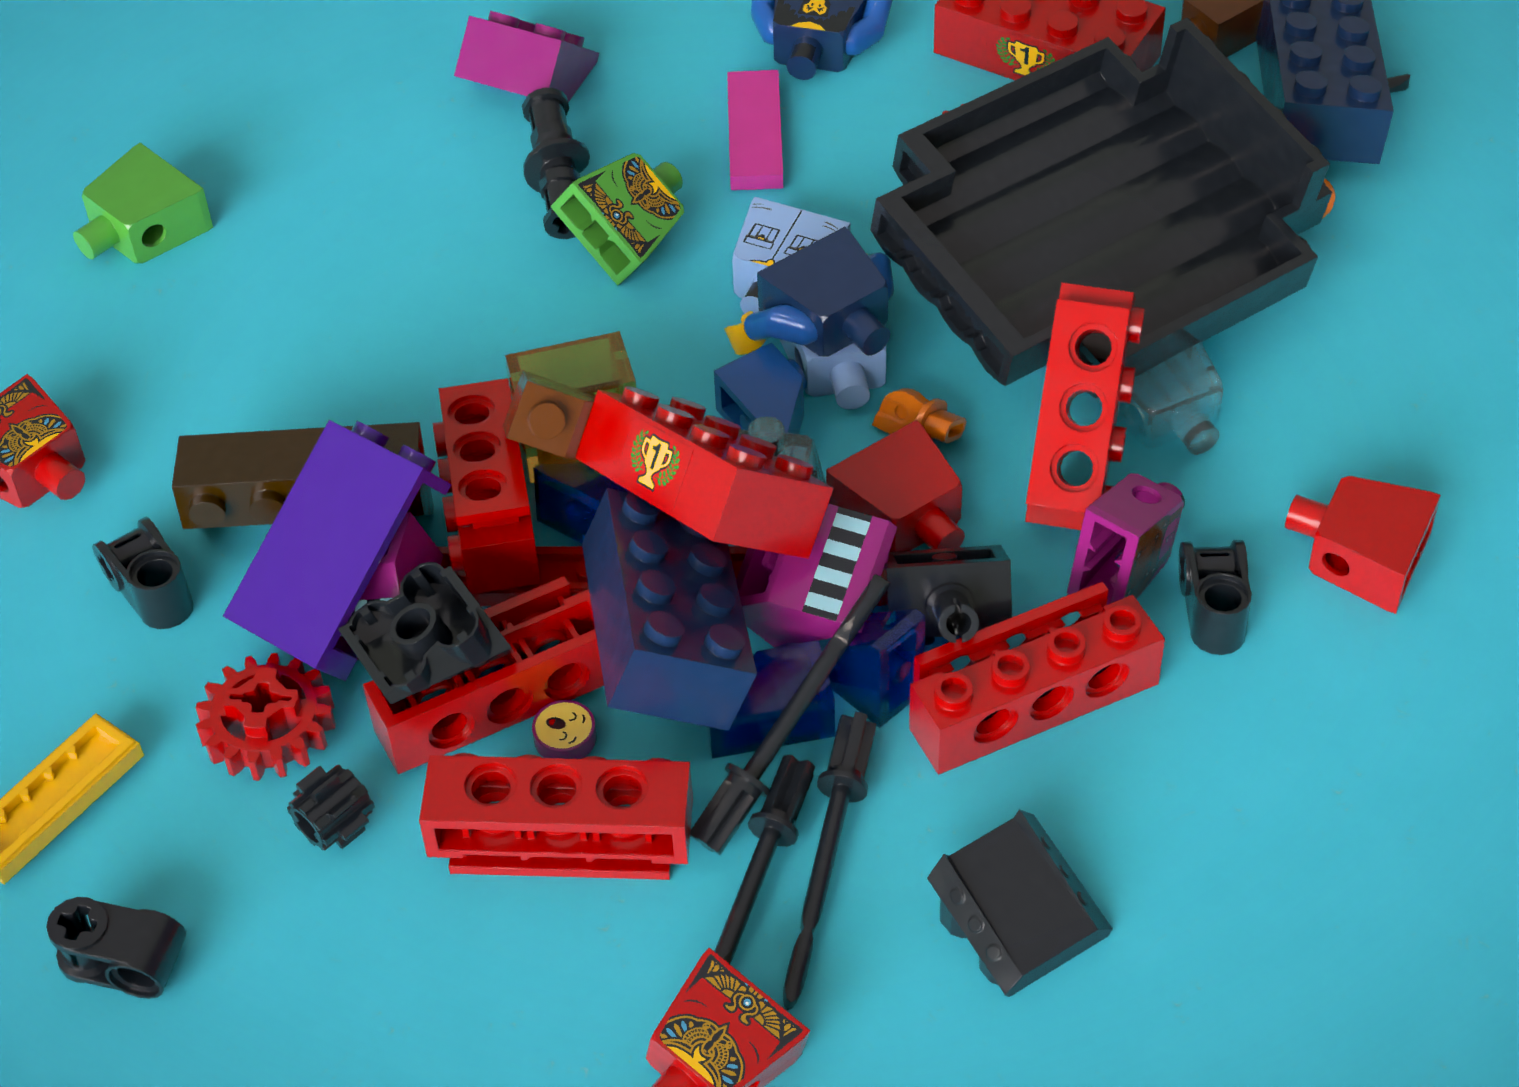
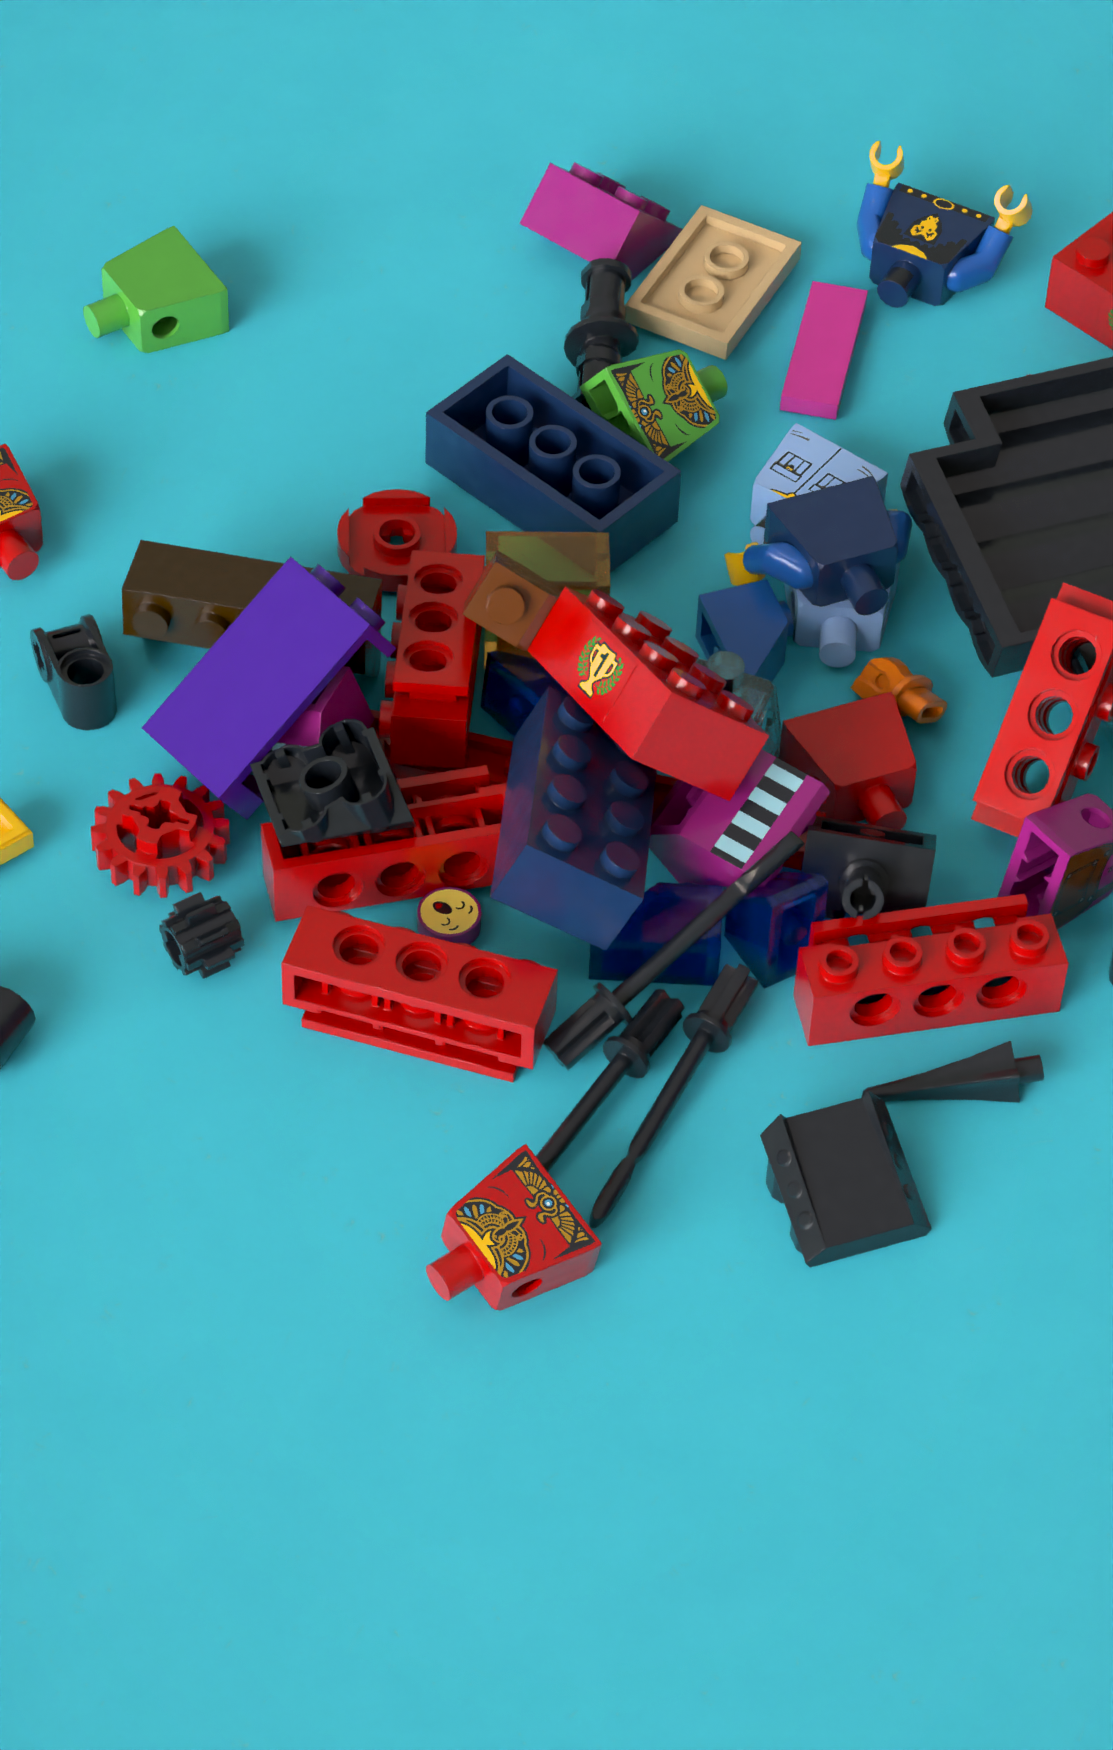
camera: 10 degrees right, 0 degrees up
(388, 381) = (367, 532): none -> red plate
(540, 278) = (550, 461): none -> dark blue brick
(640, 91) = (713, 282): none -> tan plate
(1115, 765) = (984, 1076): none -> black piece

